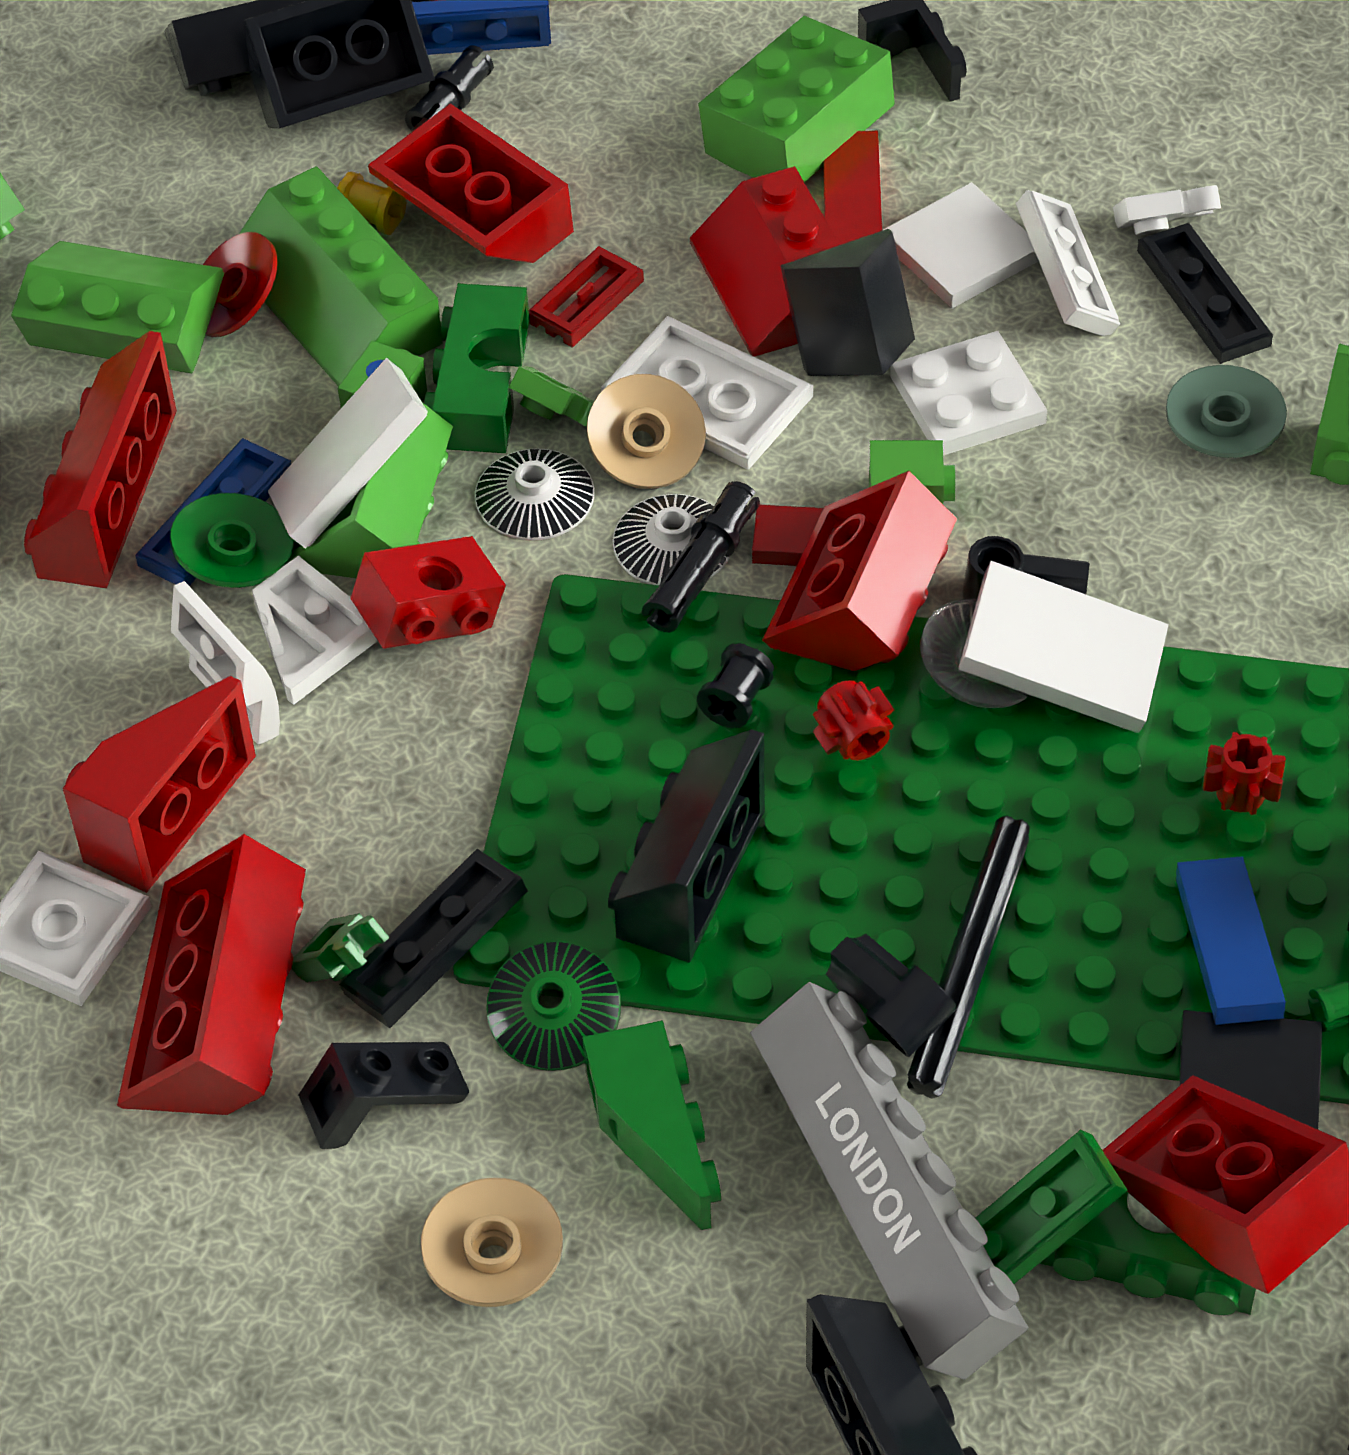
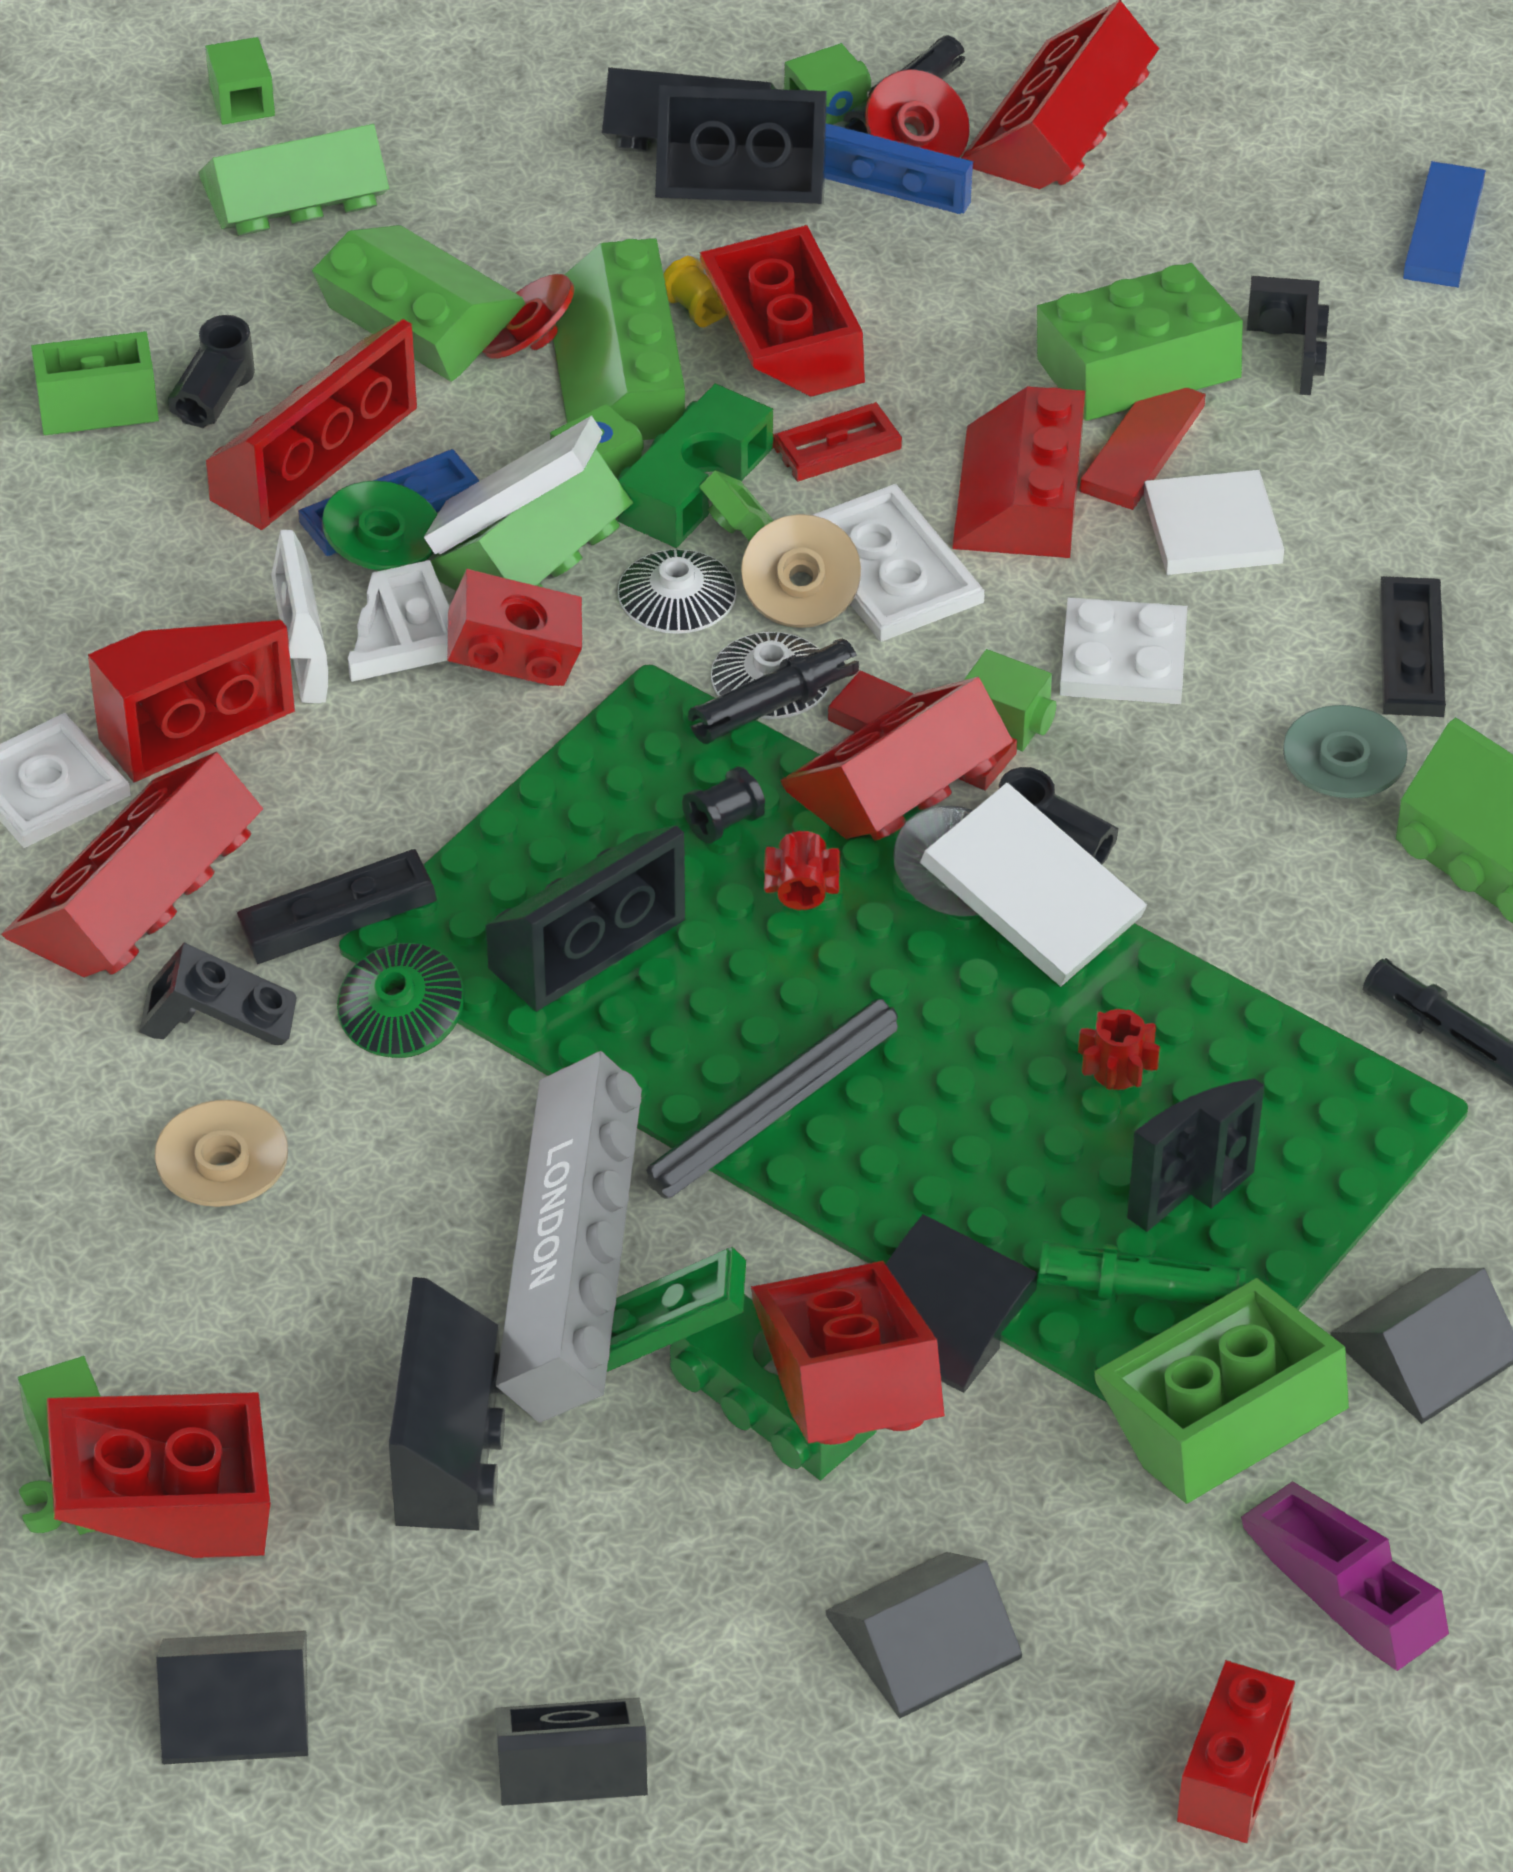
camera: 25 degrees right, 5 degrees down
(338, 948) = (248, 884): green plate -> none
(452, 86) = (842, 219): black pin -> none
(643, 1111) = (419, 1095): green slope -> none
(849, 307) = (1052, 530): black slope -> none
(897, 1000) = (673, 1095): black piece -> none
(1067, 263) = (1295, 572): white tile -> none
(1152, 212) = (1409, 555): white plate -> none
(1230, 941) = (1003, 1175): blue tile -> none

